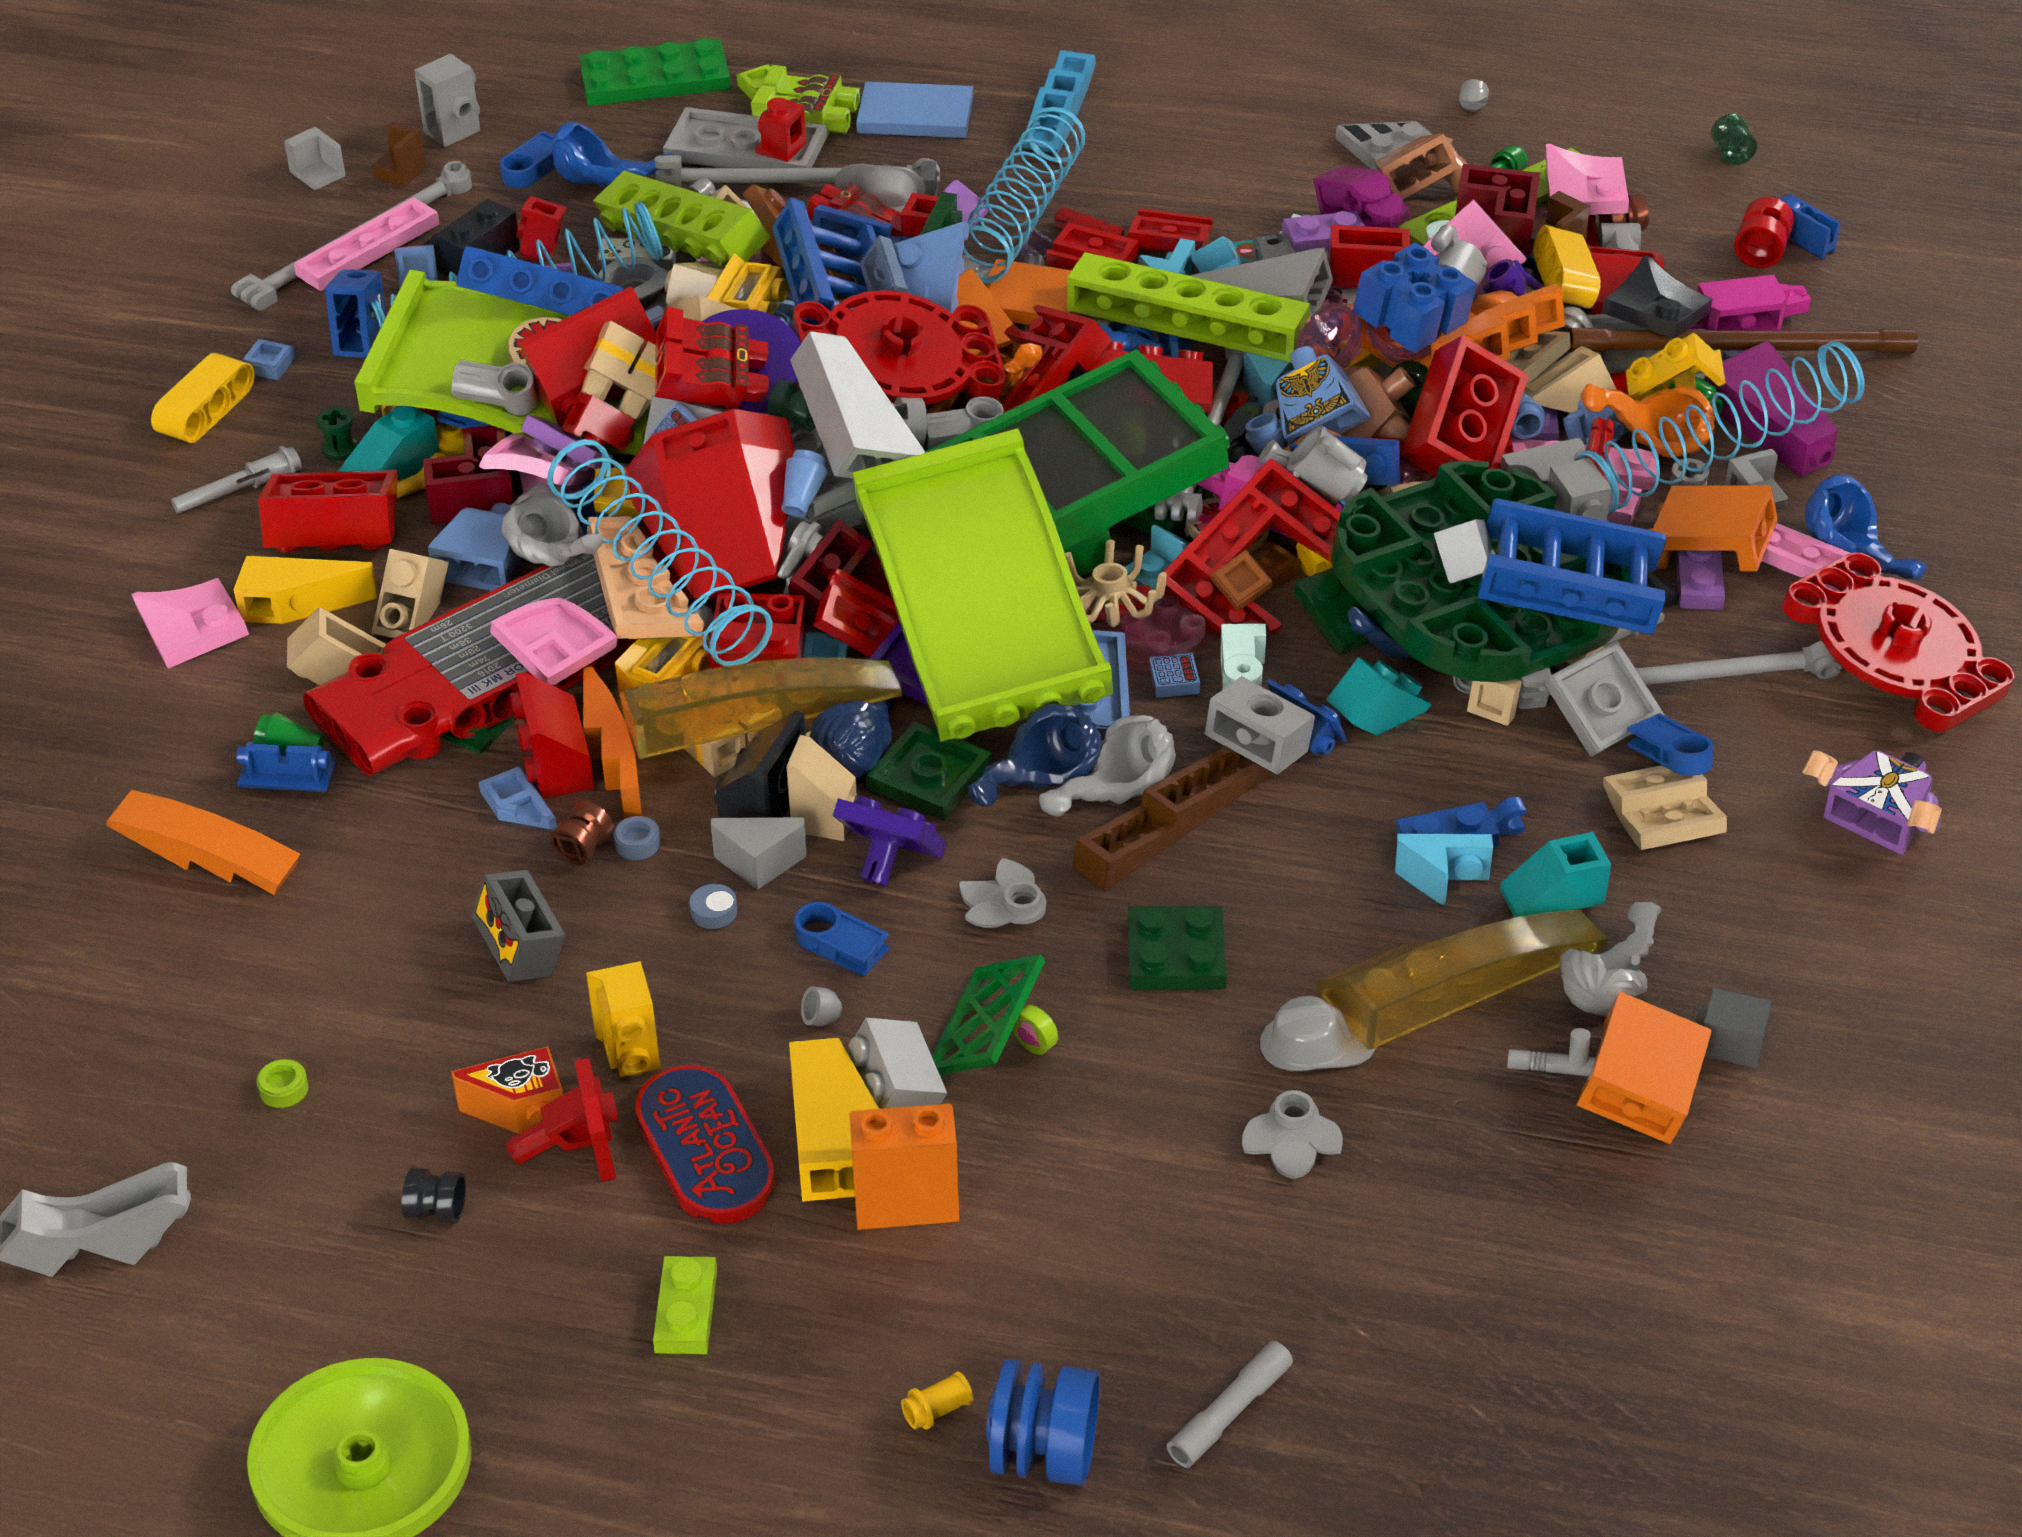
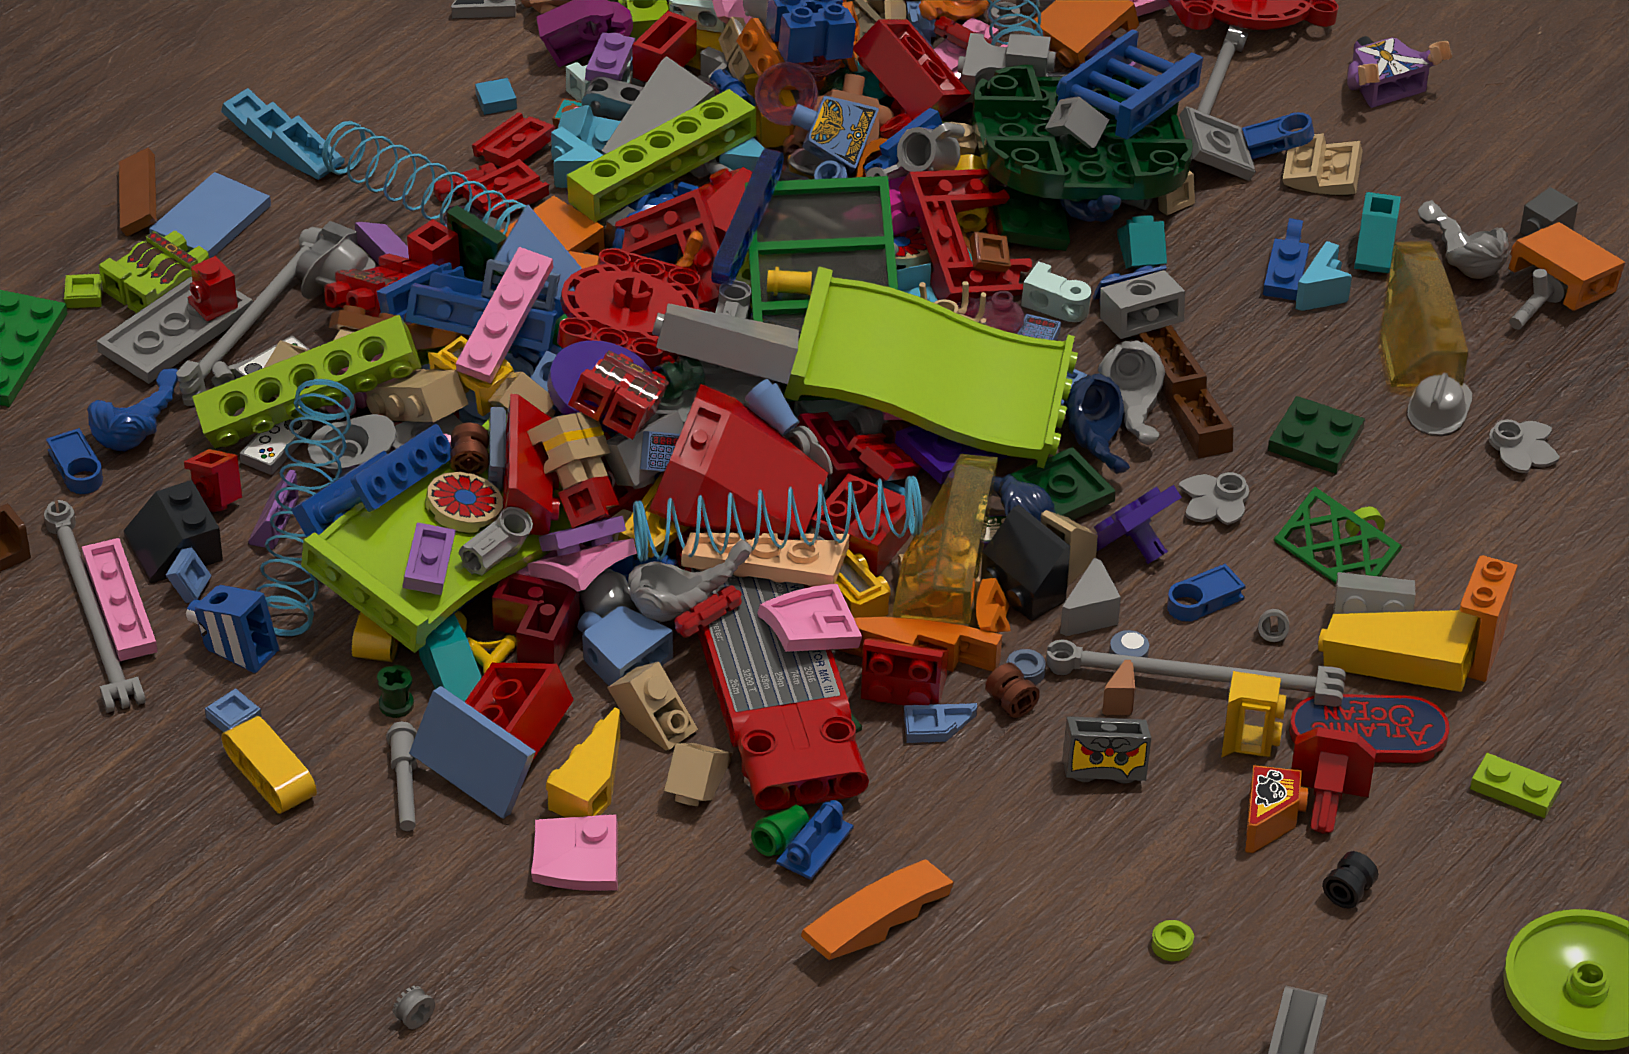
camera: 65 degrees left, 0 degrees up
(247, 502) = (472, 752): none -> medium blue tile
(437, 350) = (429, 558): none -> medium lavender plate
(530, 568) = (708, 611): none -> red axle
(633, 914) = (1120, 691): none -> nougat slope
(684, 775) = (992, 607): none -> orange slope
(729, 1067) = (1064, 656): none -> light grey hinge
(793, 265) = (504, 315): none -> bright pink plate
(910, 58) = (137, 192): none -> dark orange tile
(1010, 419) = (789, 282): none -> yellow pin
(1053, 359) = (747, 217): none -> clear blue beam
(1235, 201) = (496, 96): none -> dark azure tile

